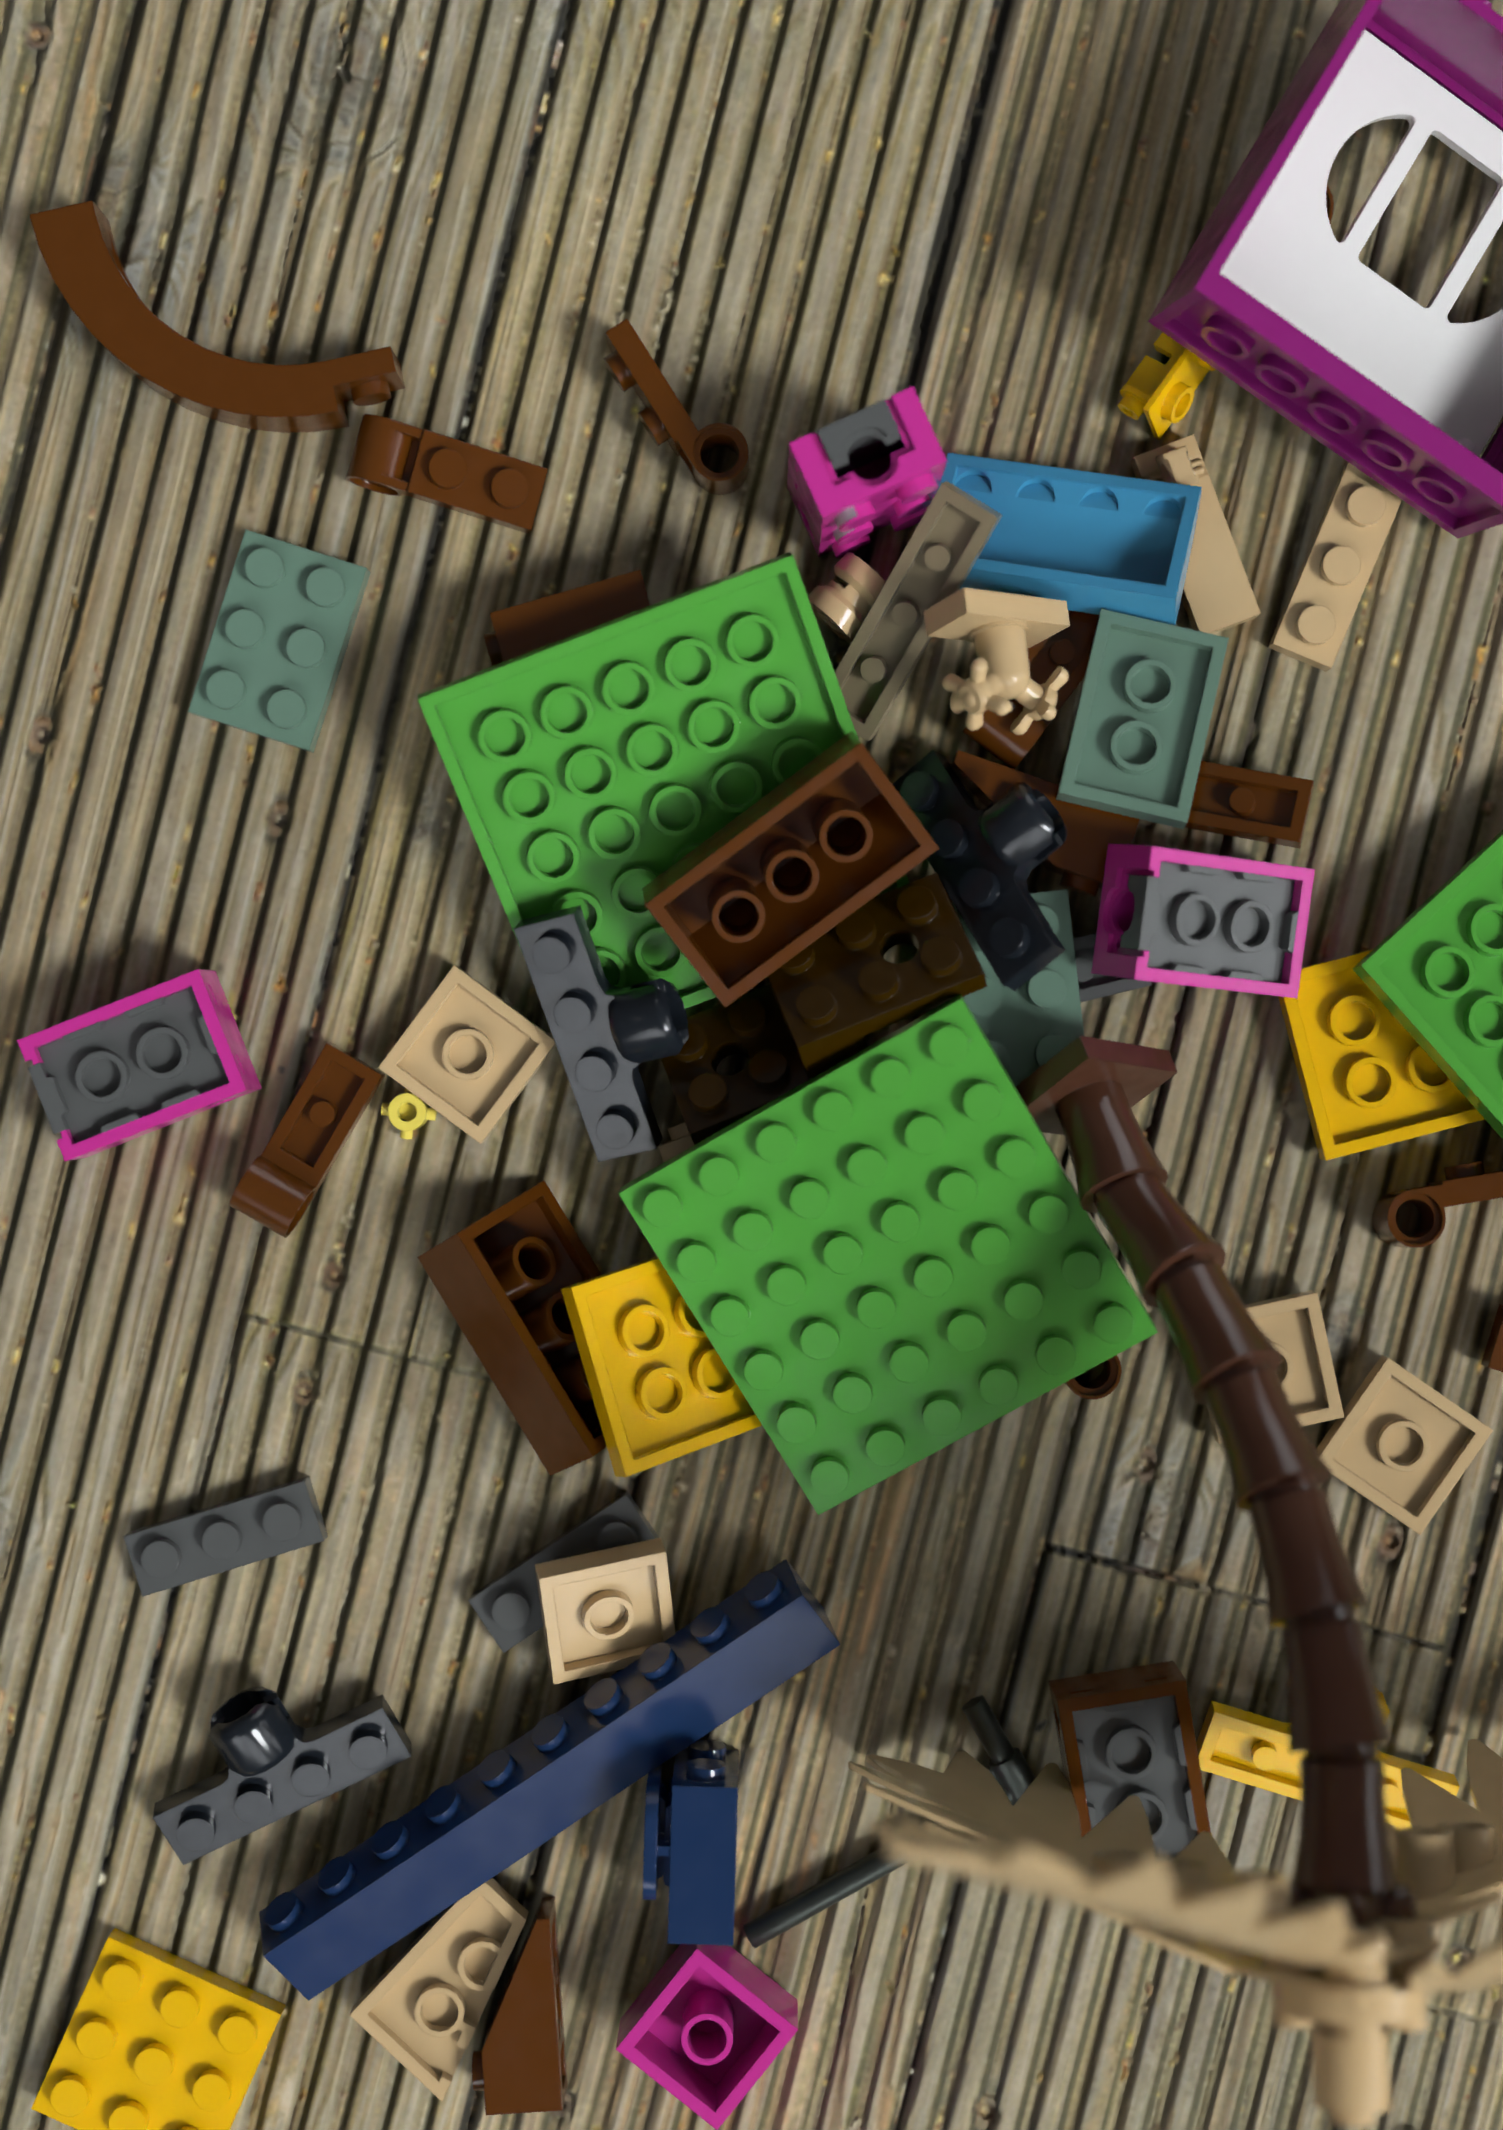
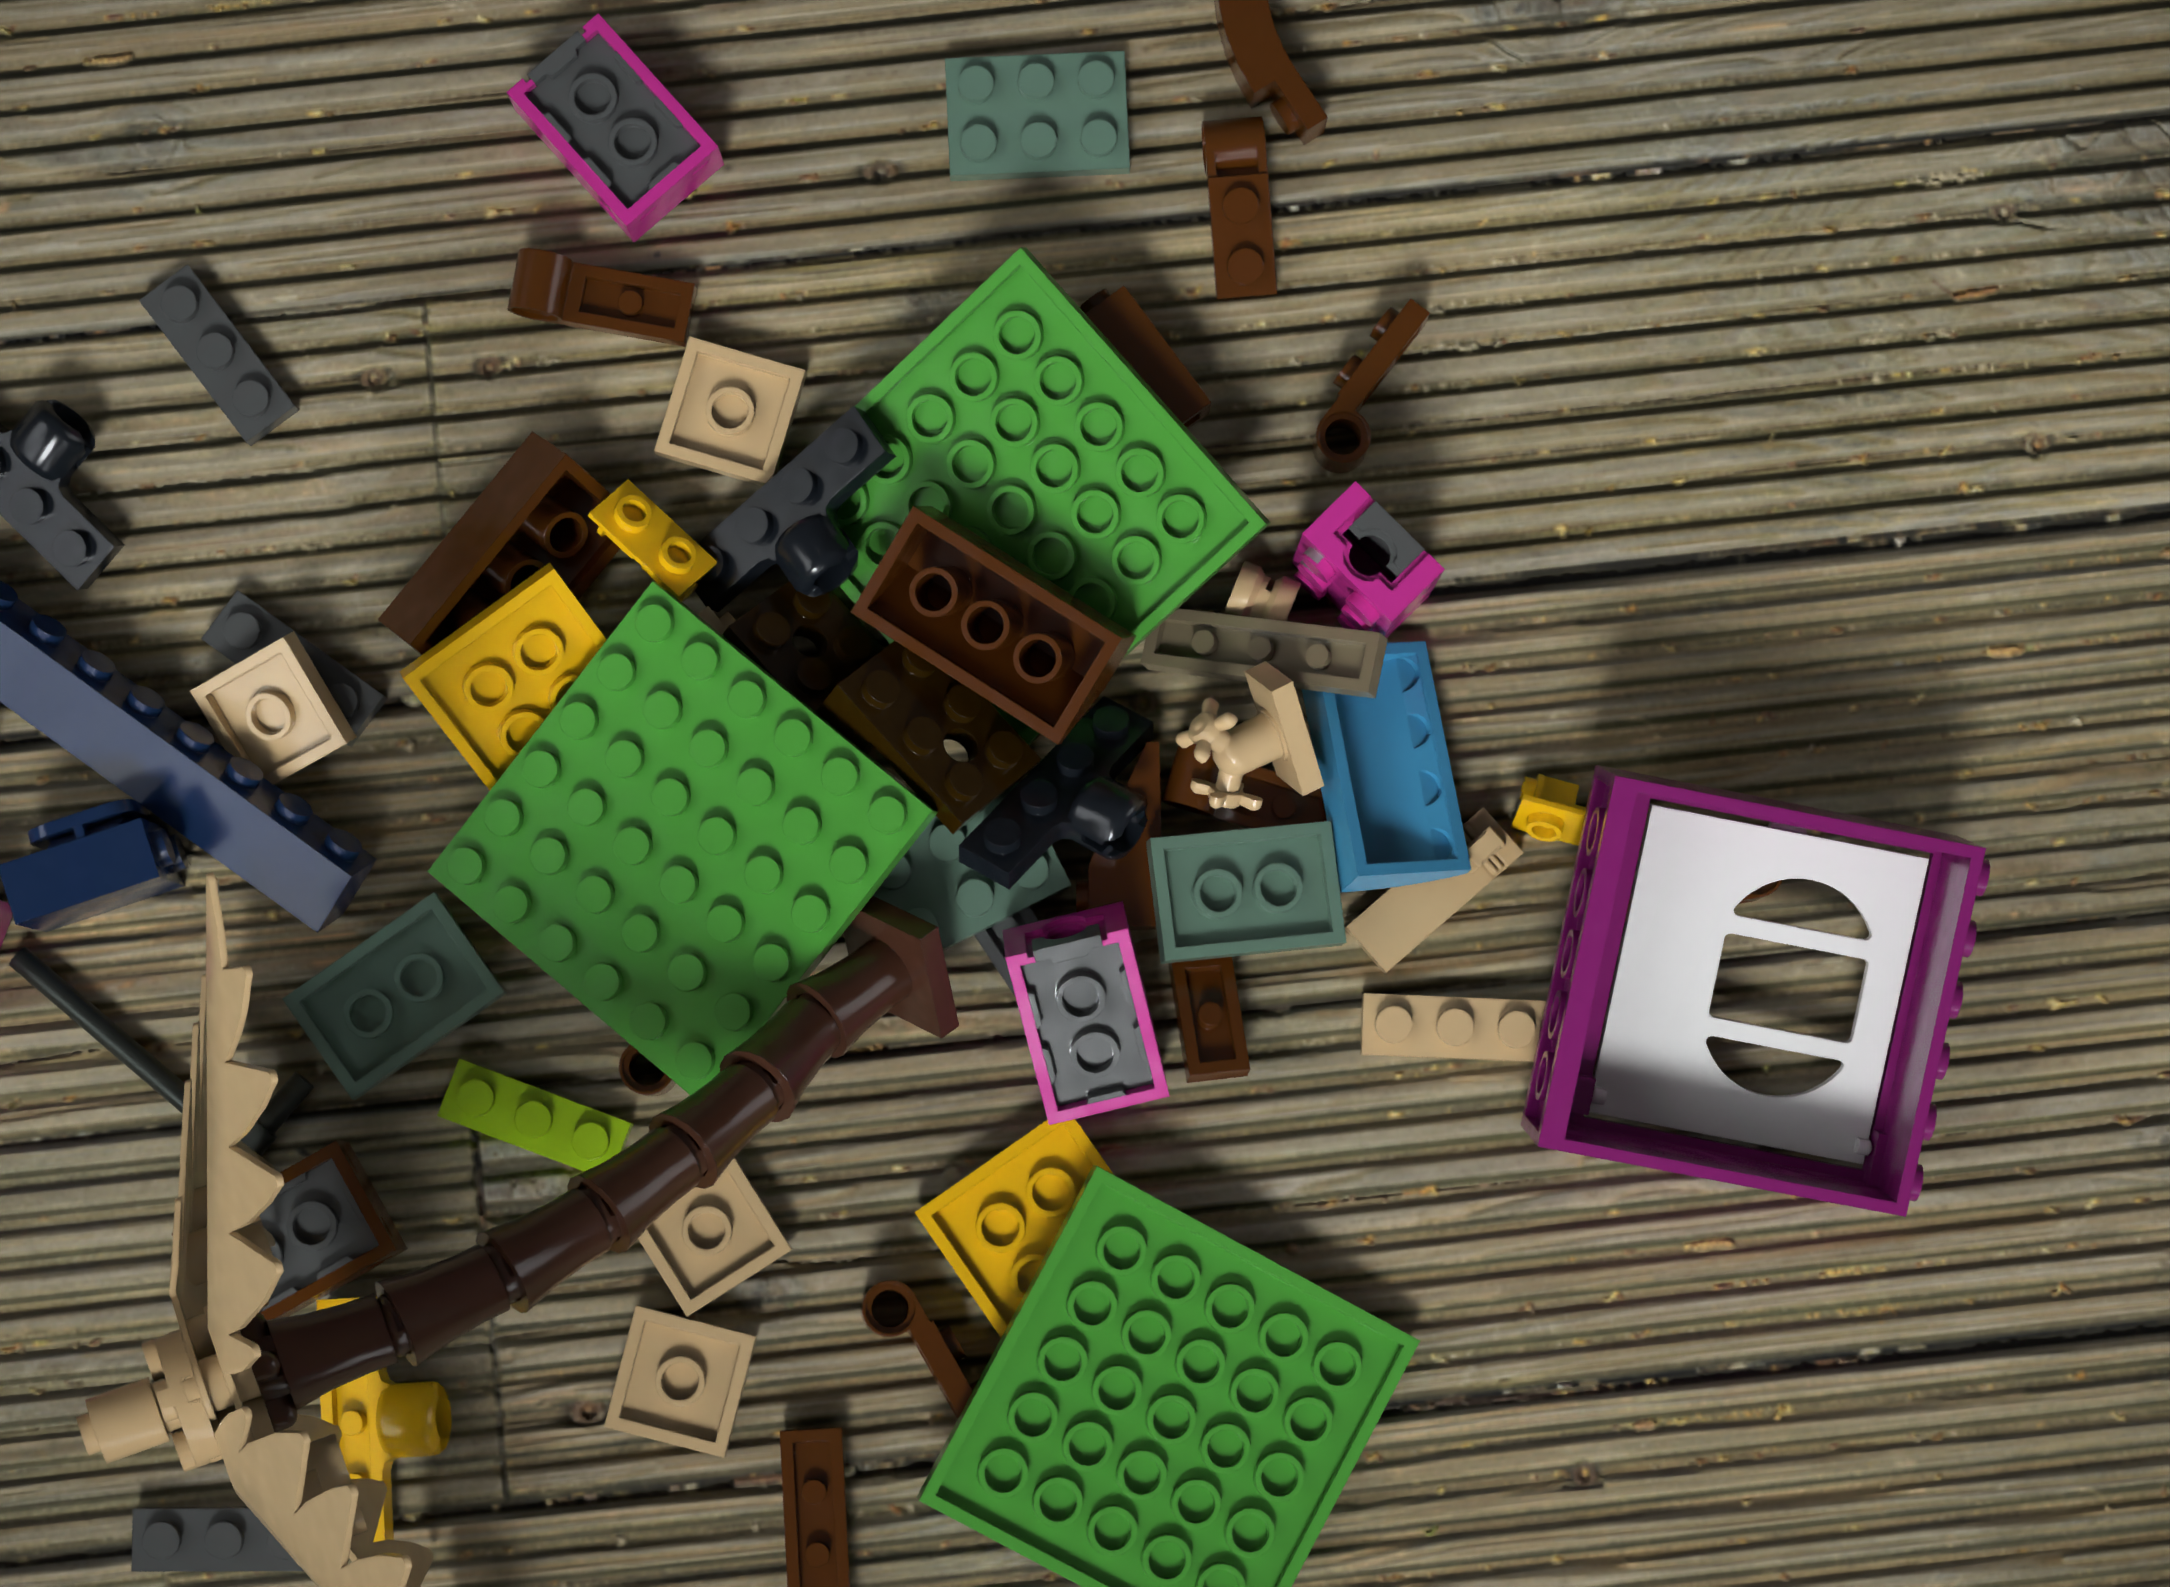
camera: 70 degrees right, 5 degrees down
(408, 1113) = (657, 378): light yellow piece -> none
(572, 1178) = (652, 540): none -> yellow hinge
(925, 1588) = (394, 996): none -> sand green plate
(1093, 1494) = (532, 1117): none -> lime plate

